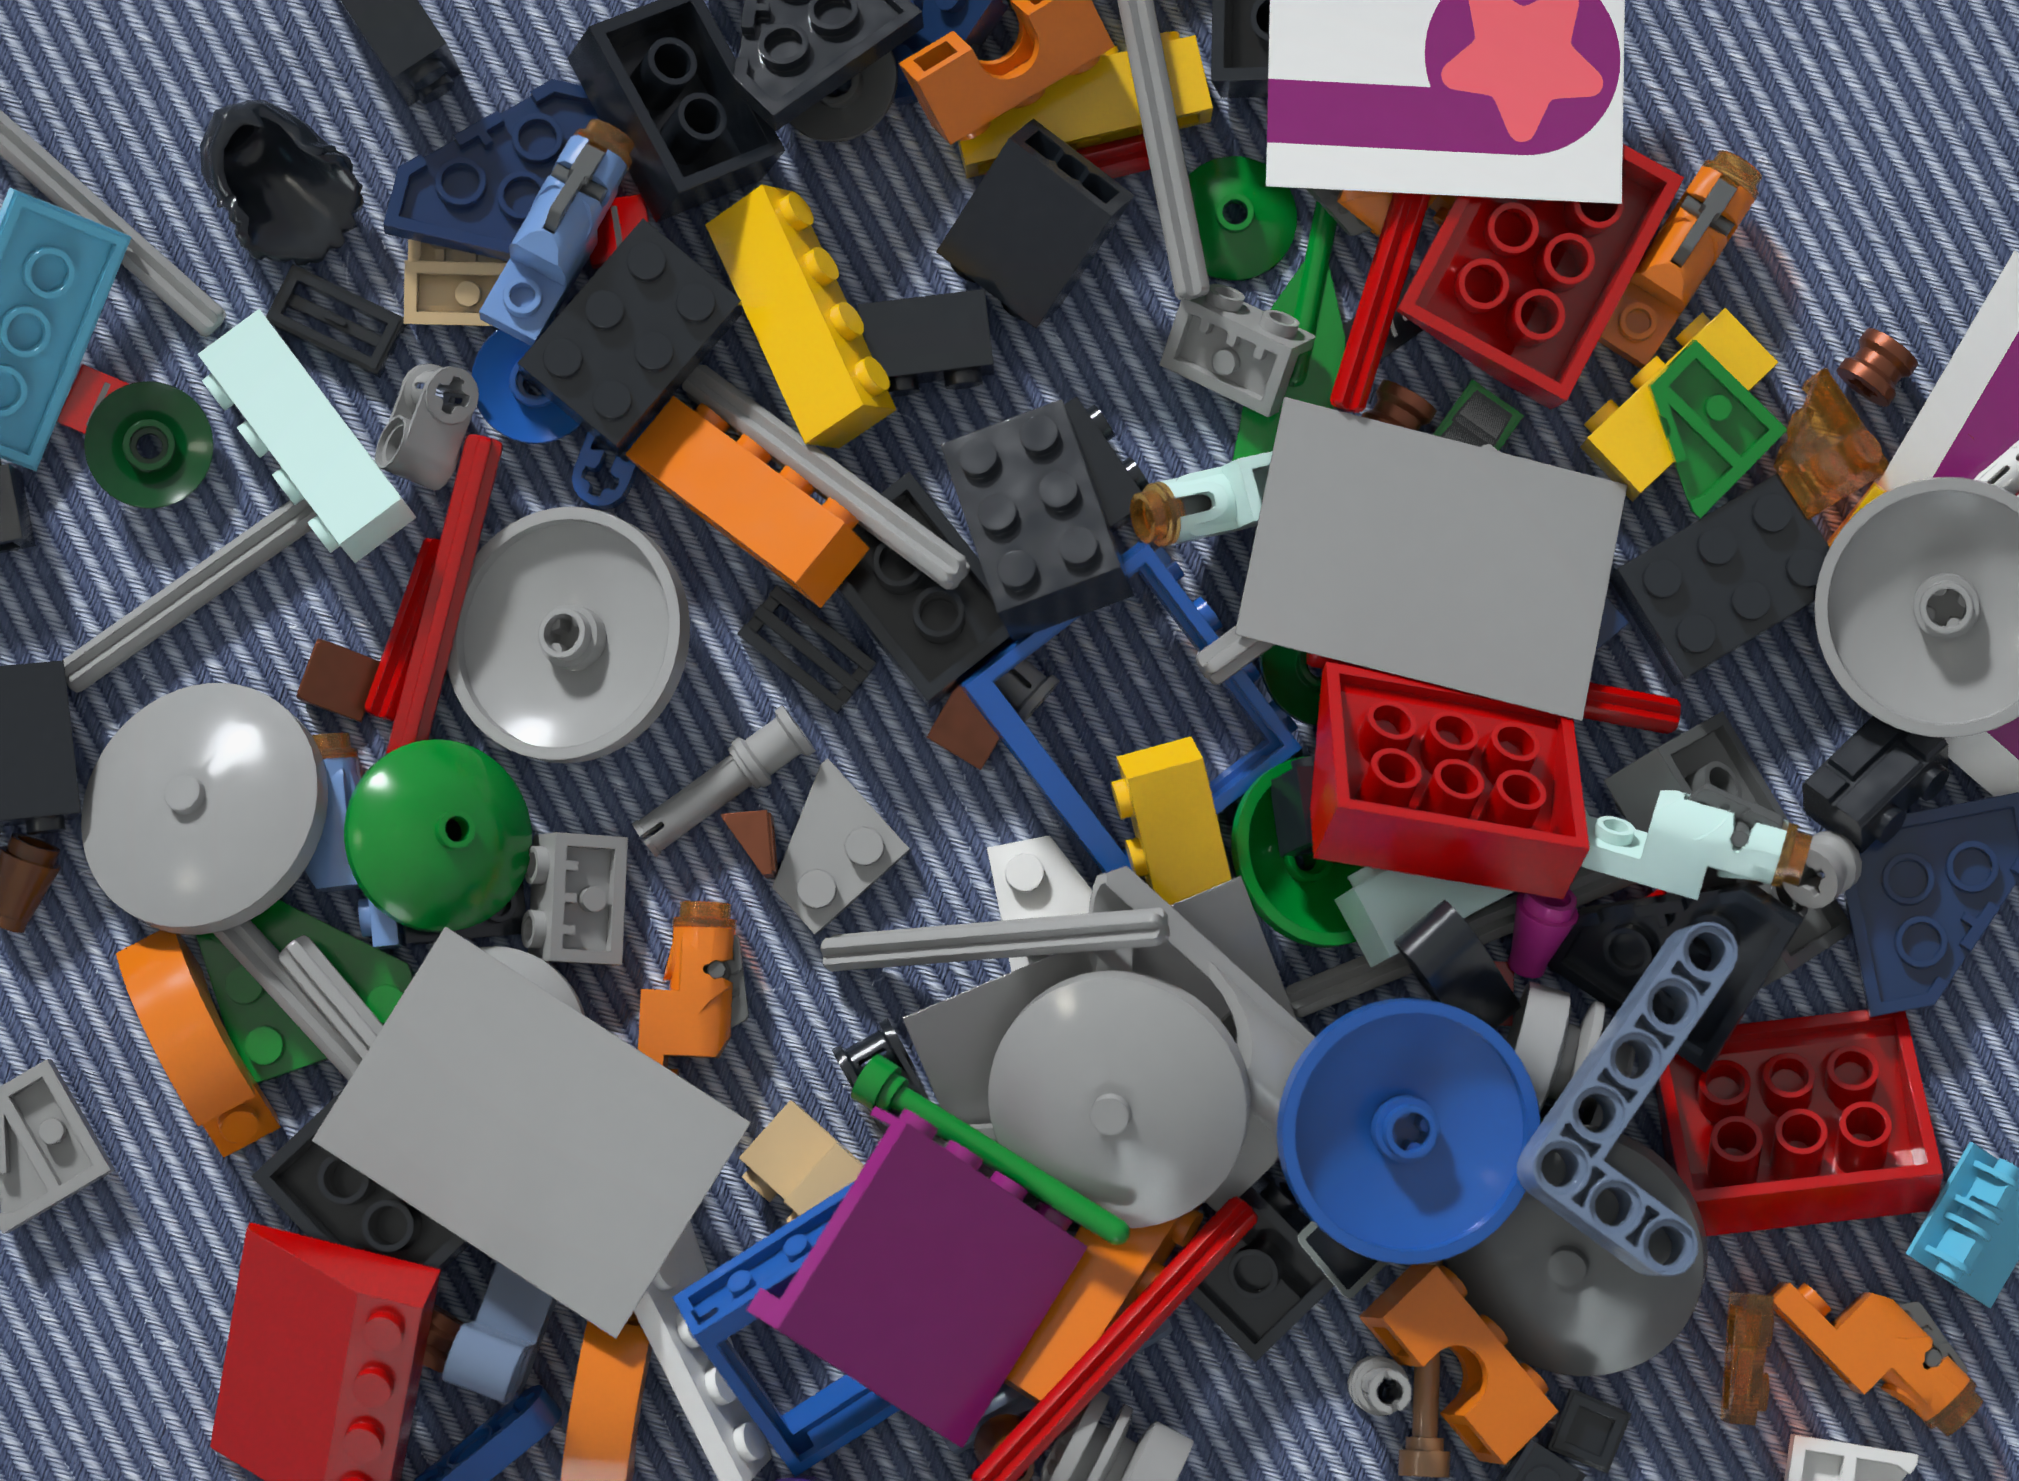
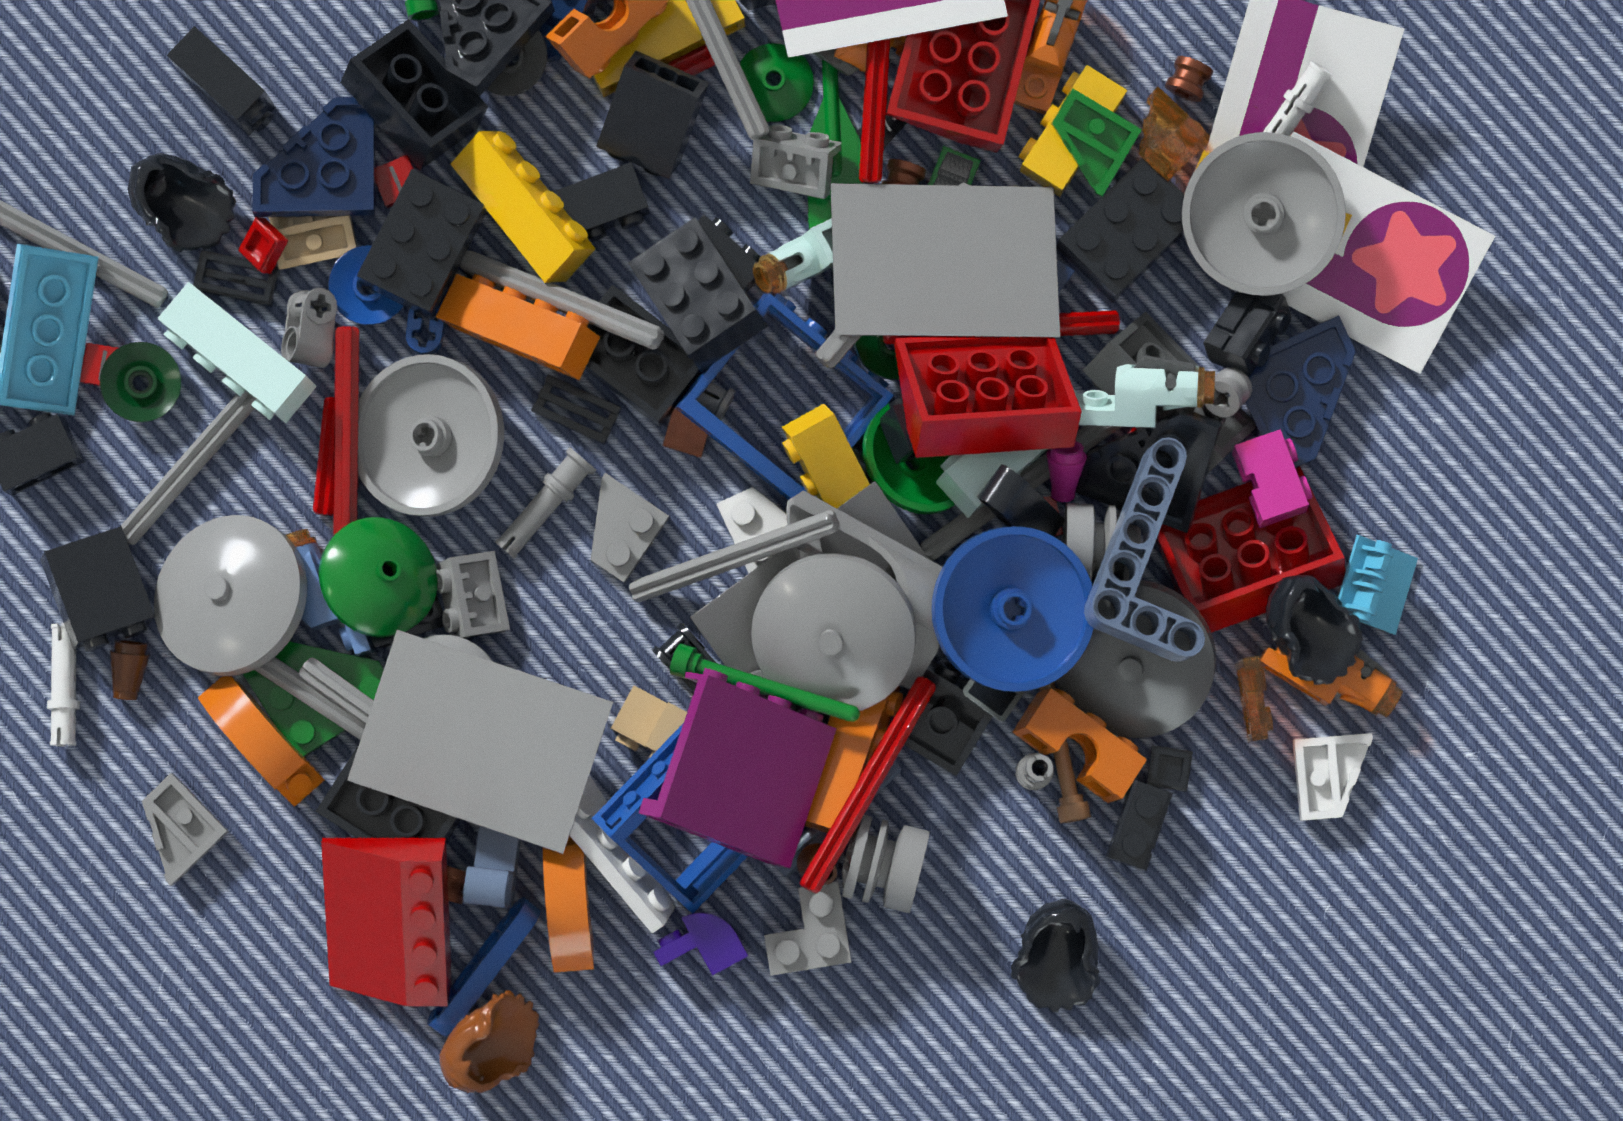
camera: 15 degrees left, 0 degrees up
(337, 680) = (292, 498): copper slope -> none
(387, 280) = (263, 245): none -> red tile
(558, 232) = (362, 190): medium blue plate -> none
(704, 989) = (564, 631): orange plate -> none
(757, 836) = (573, 531): copper slope -> none
(1862, 1020) = (1276, 485): none -> dark pink brick
(1867, 1274) = (1312, 629): none -> black piece

